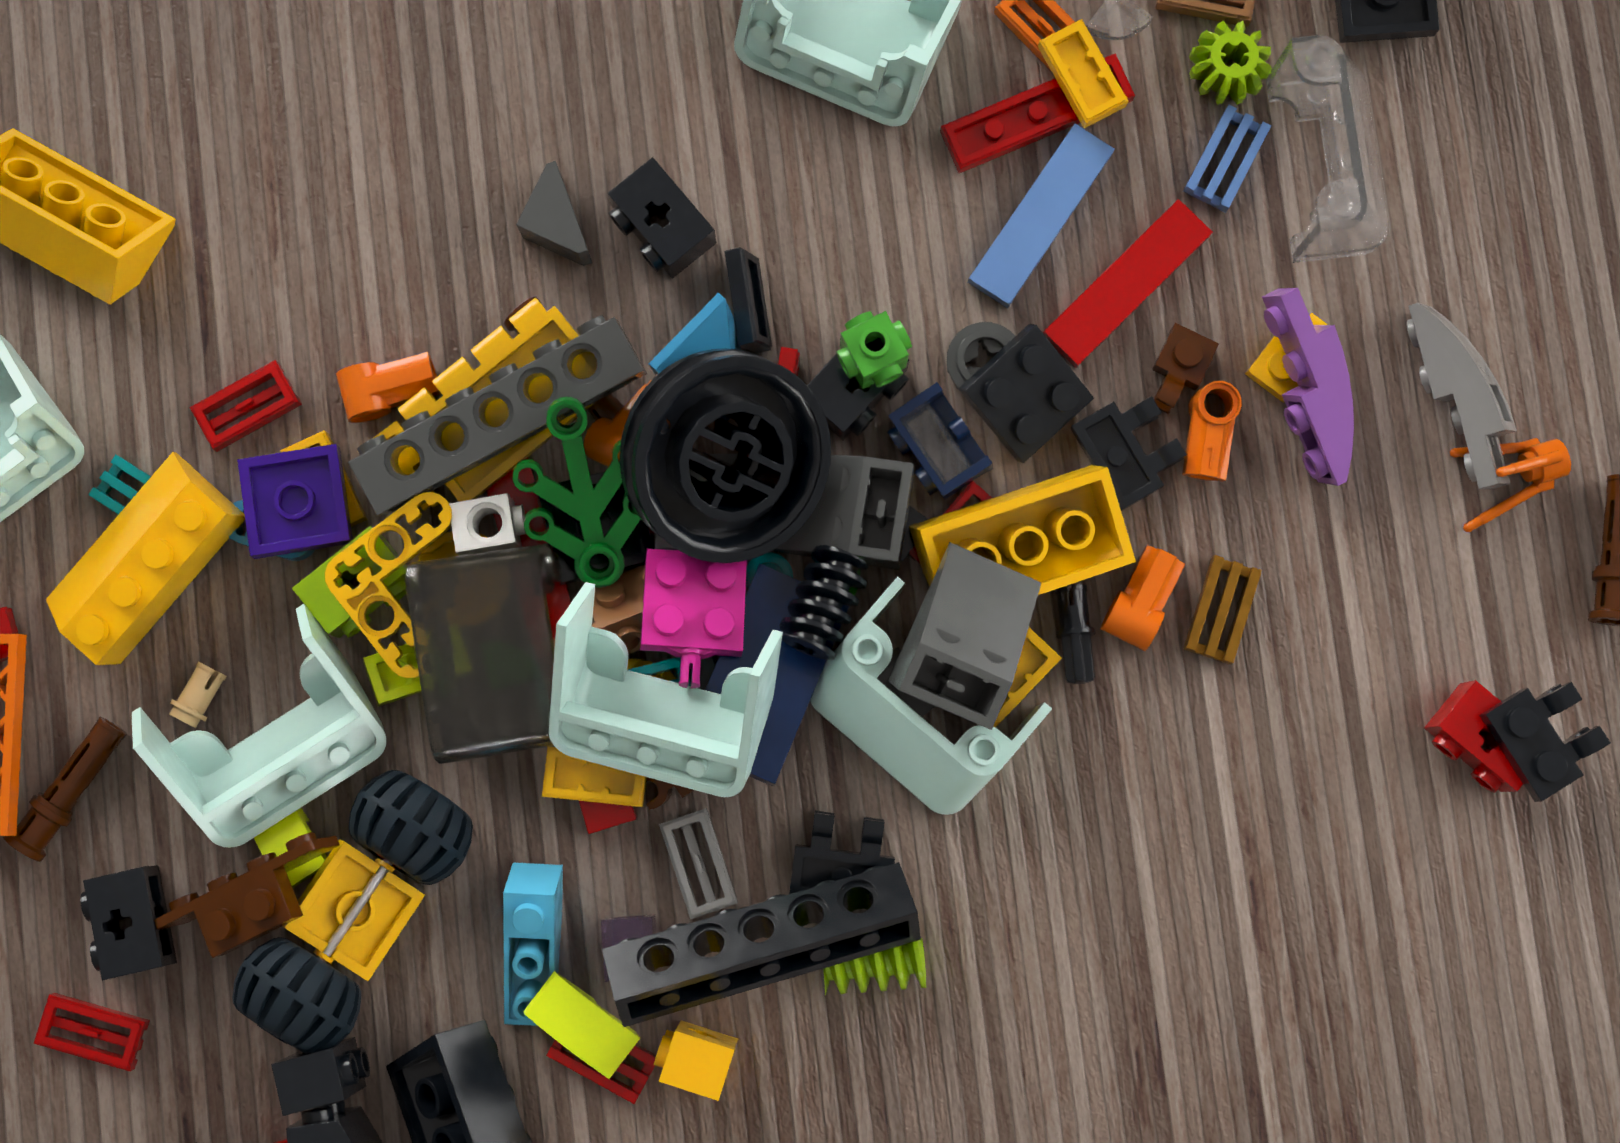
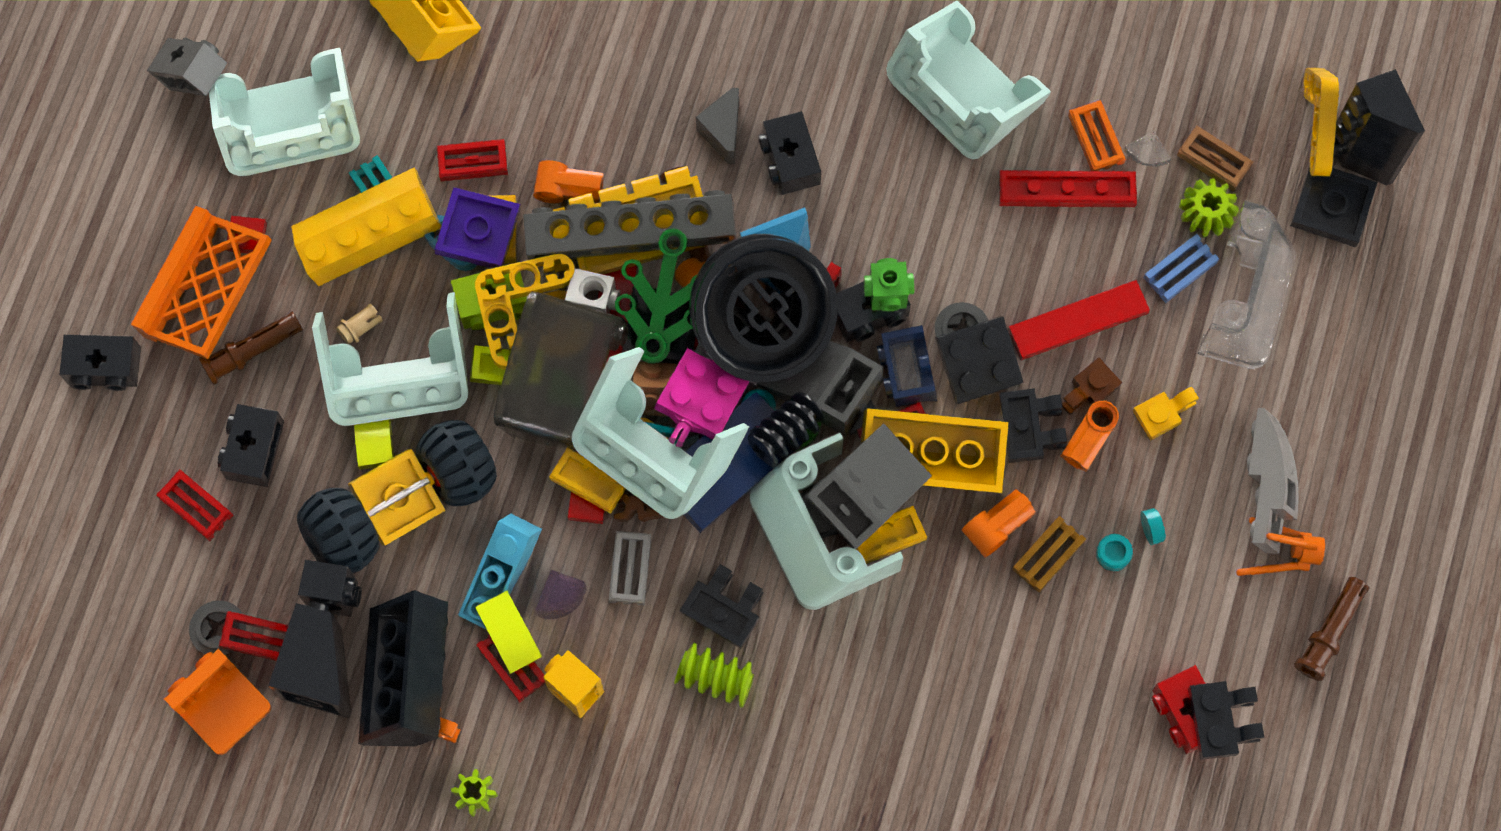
camera: 25 degrees right, 10 degrees down
(248, 904) = (336, 460): reddish brown bracket -> none
(747, 964) = (648, 624): black brick -> none
(748, 300) = (824, 225): black tile -> none
(1041, 215) = (1040, 253): medium blue tile -> none
(1075, 634) = (943, 526): black axle -> none
(1082, 73) = (1106, 173): yellow plate -> none
(1302, 571) = (1114, 552): none -> teal tile
(1322, 402) = (1171, 446): medium lavender slope -> none
(1339, 517) = (1153, 526): none -> teal tile

